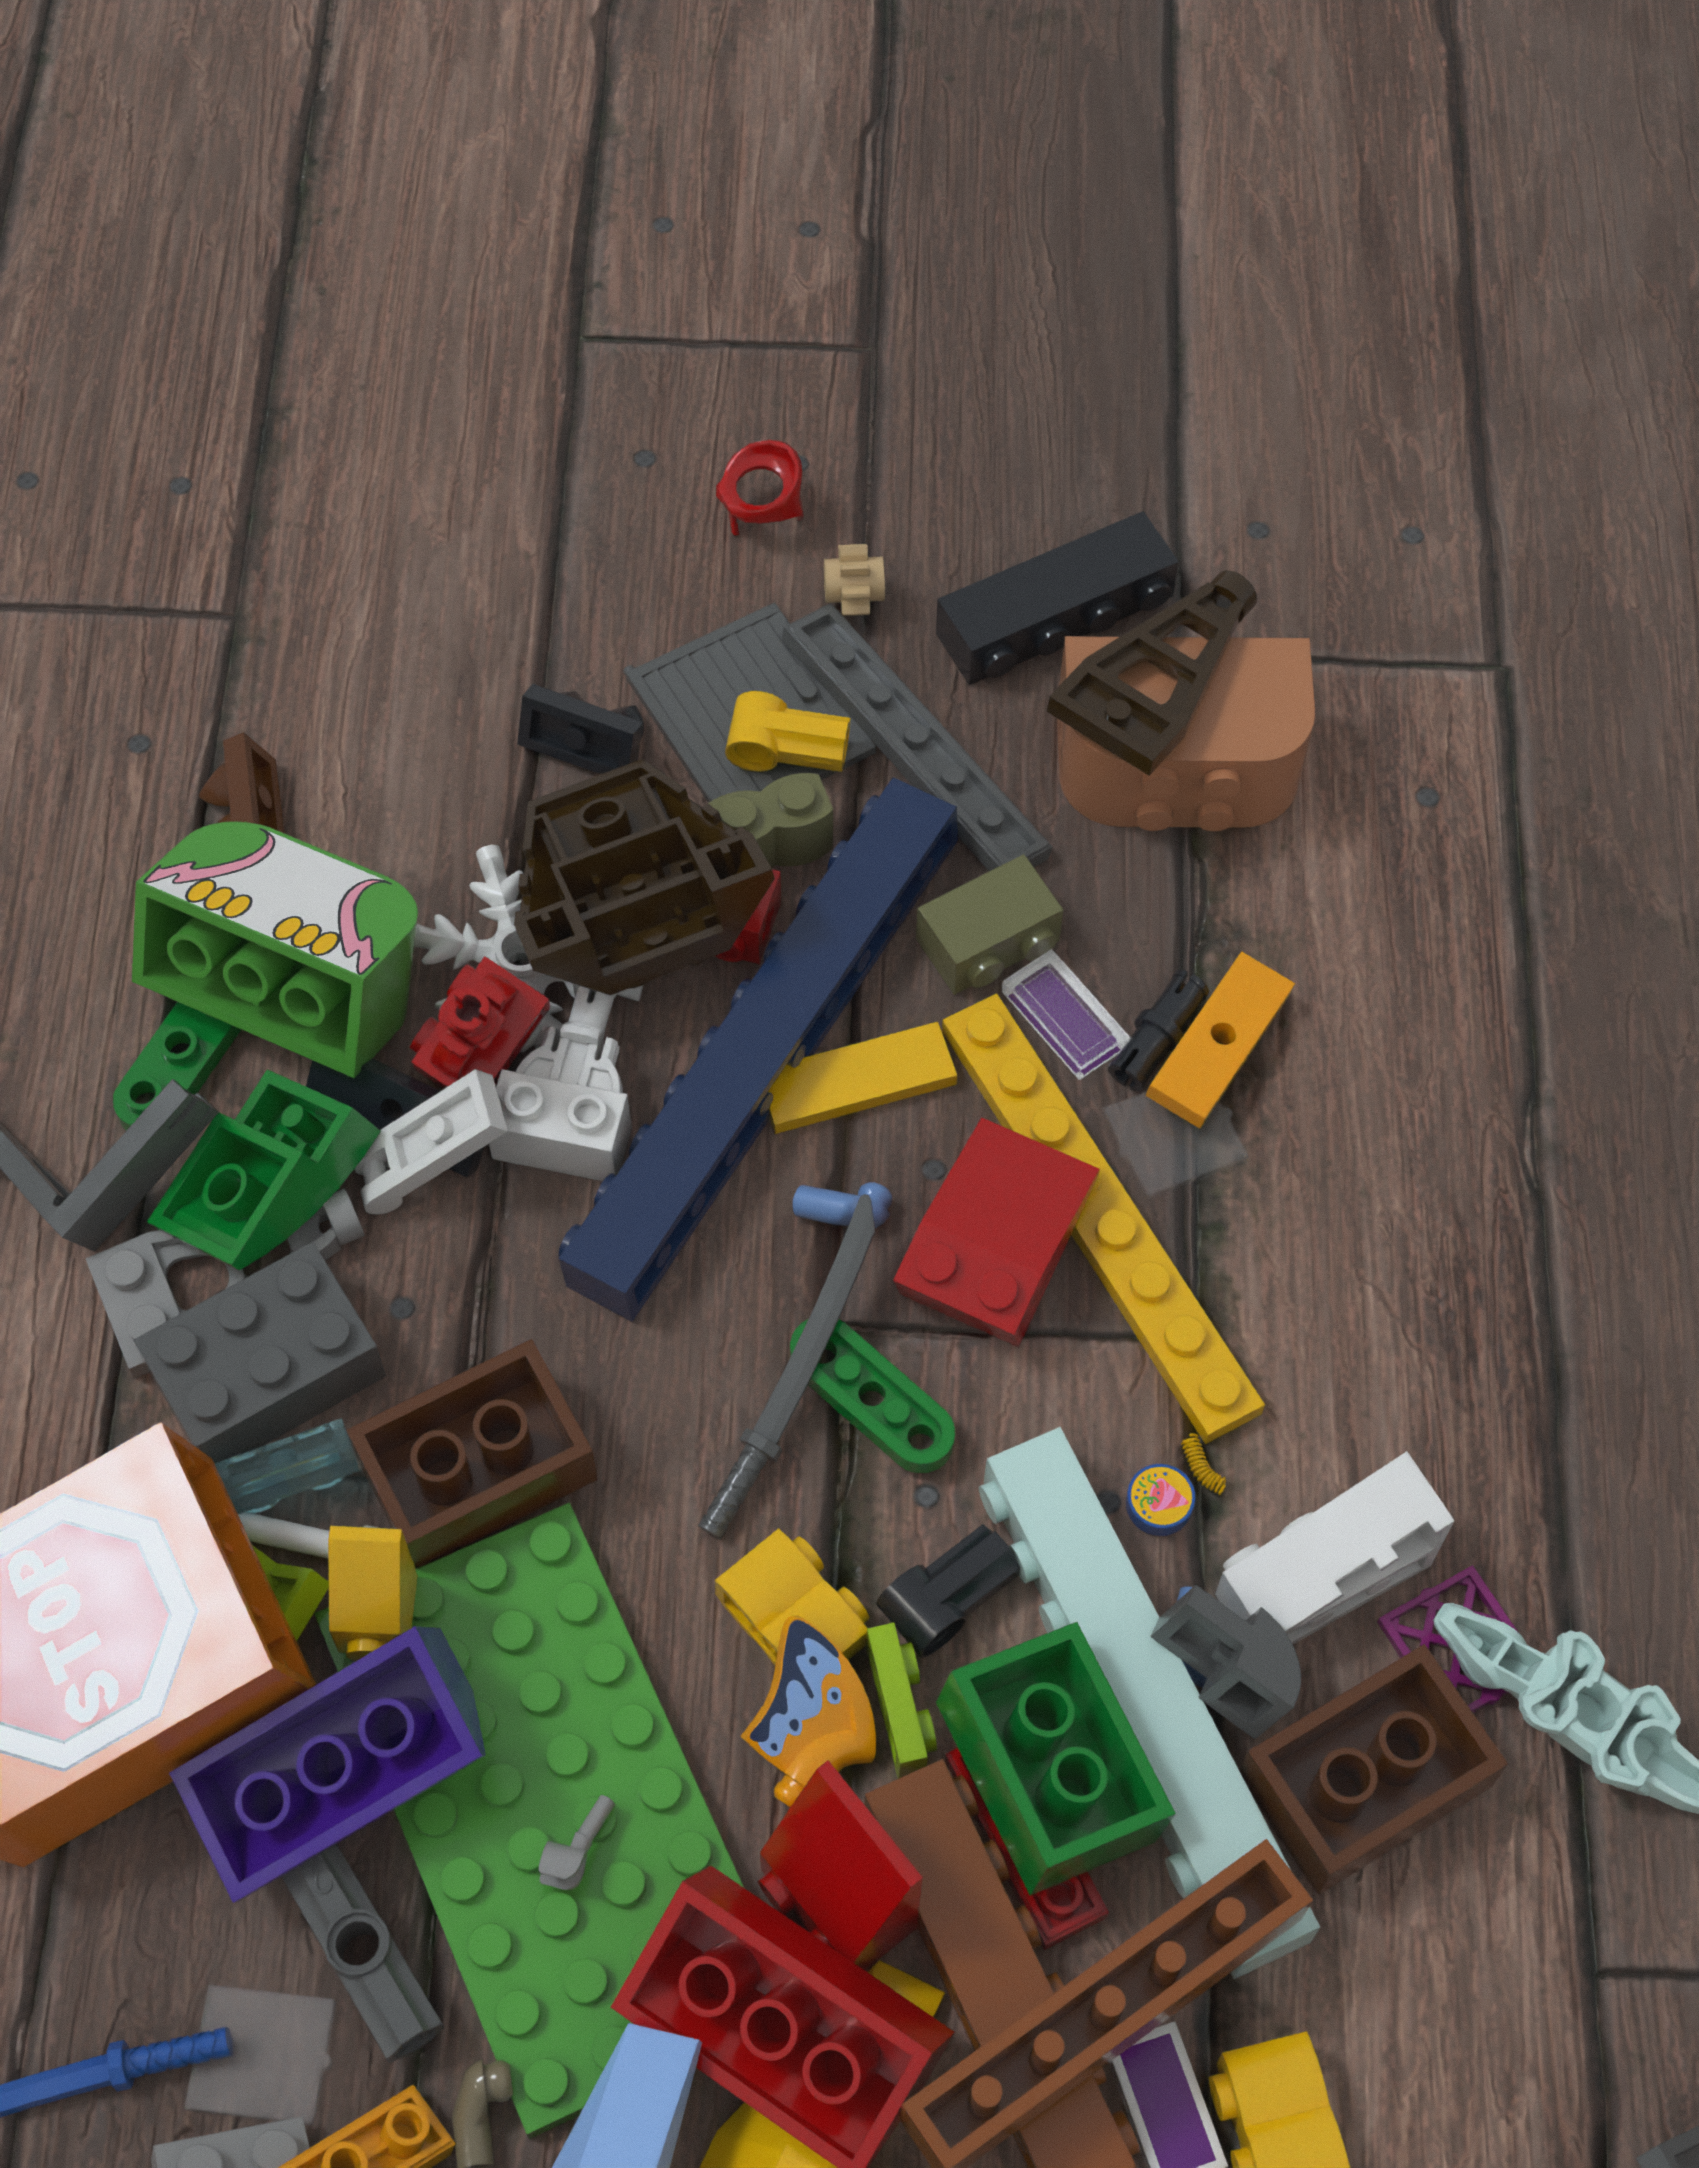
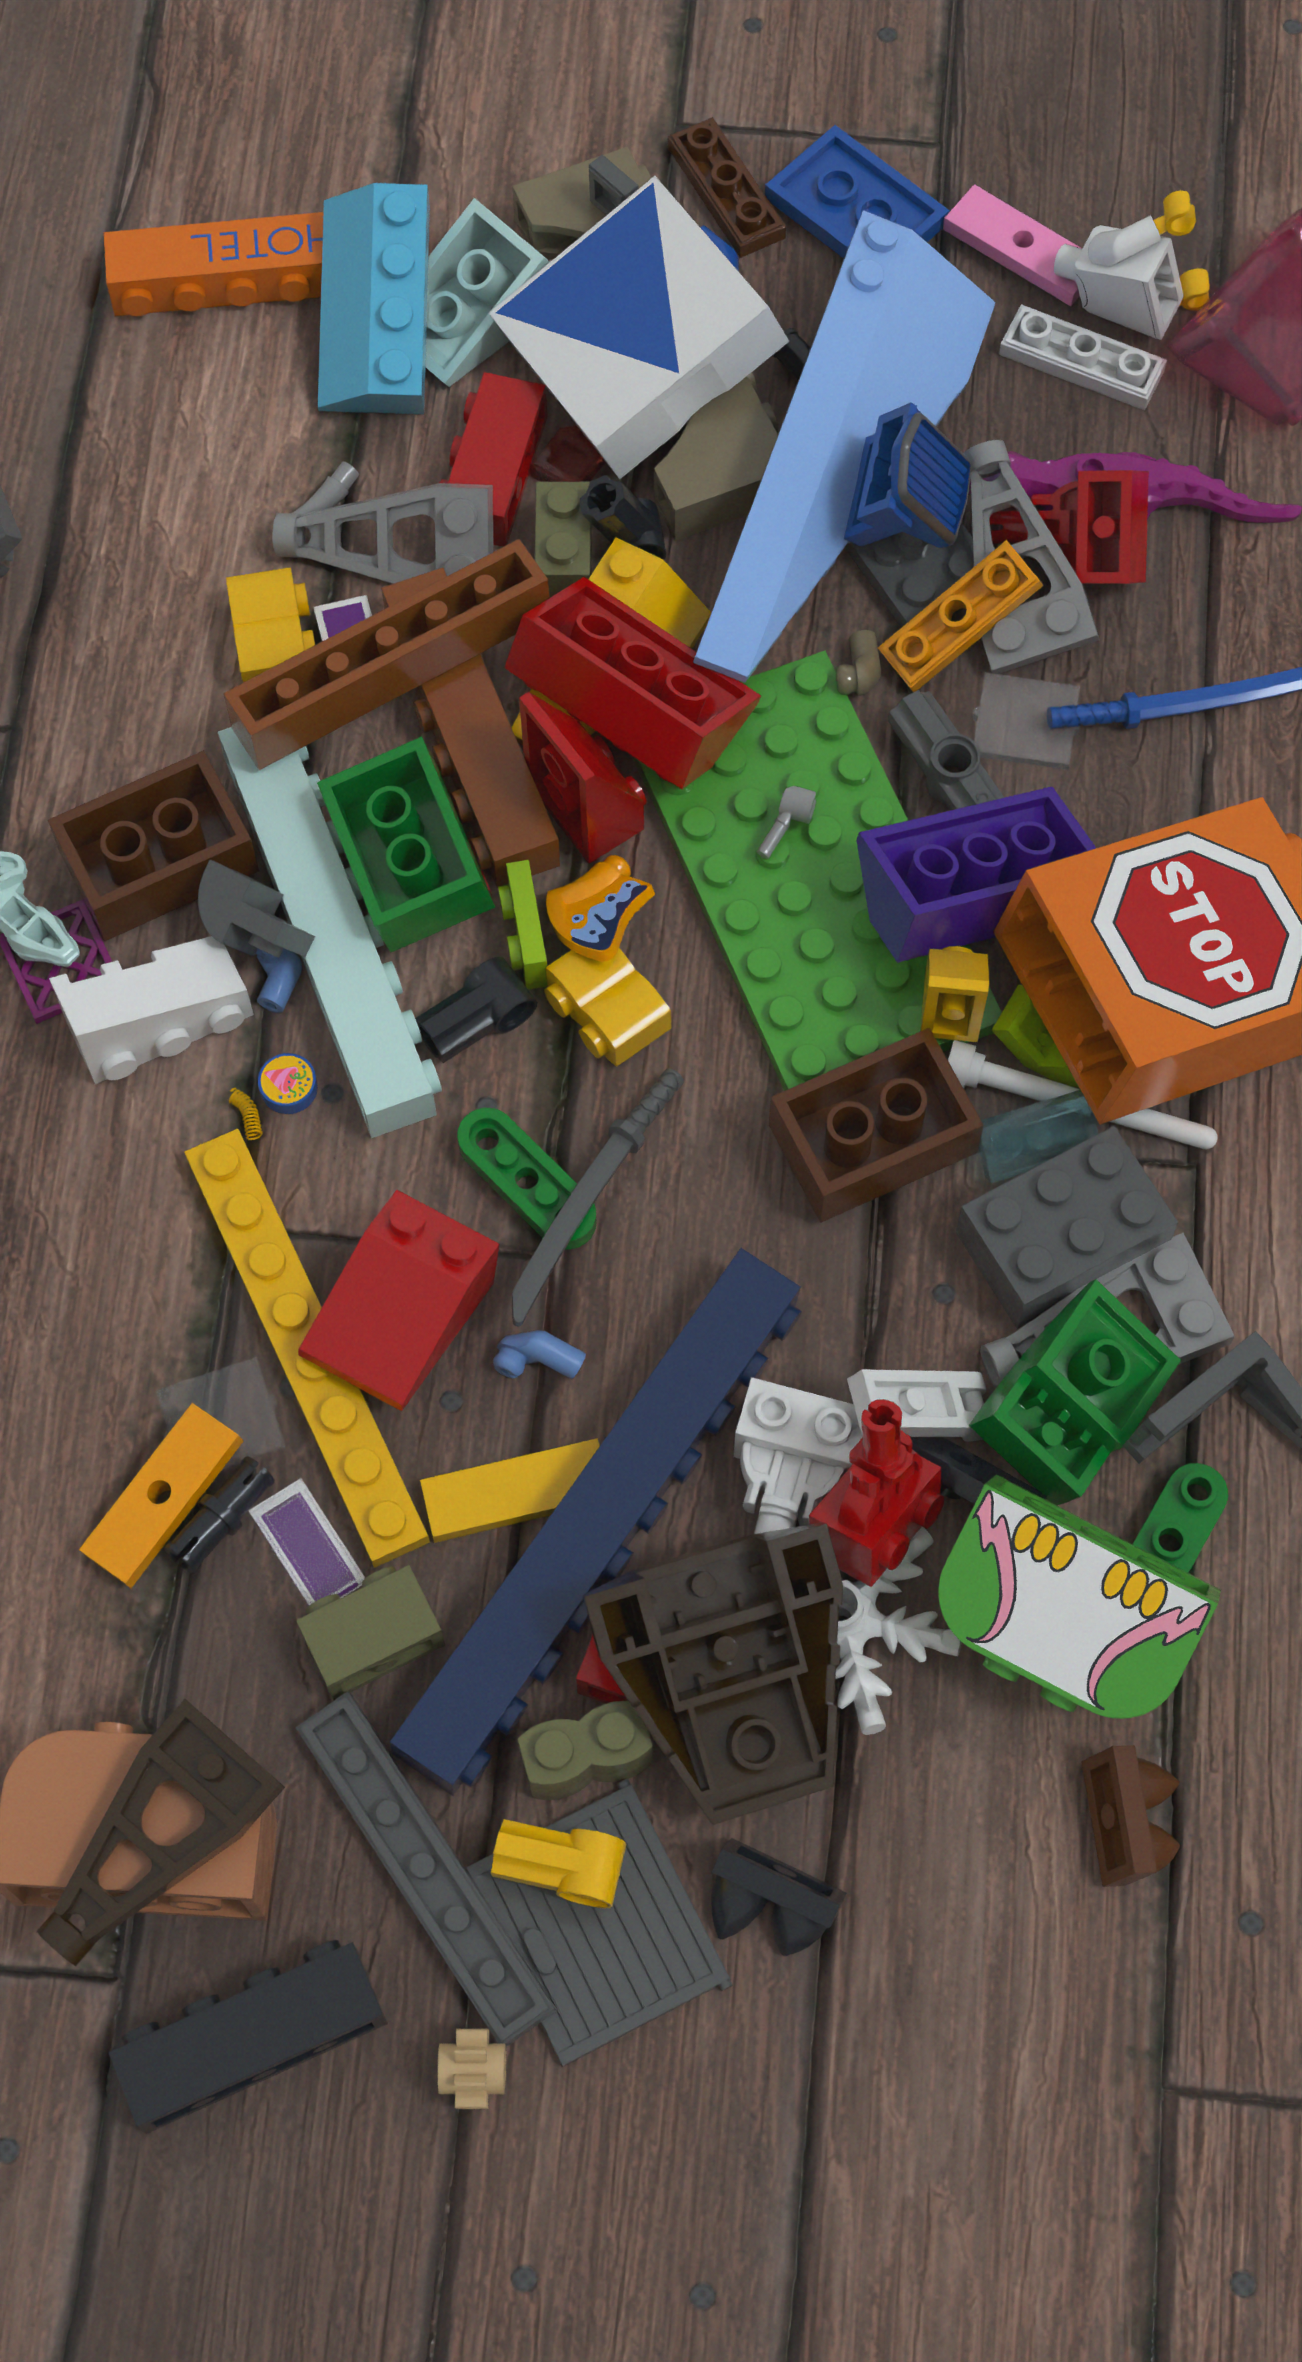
camera: 175 degrees left, 5 degrees up
(768, 455) = (543, 2237): red piece -> none

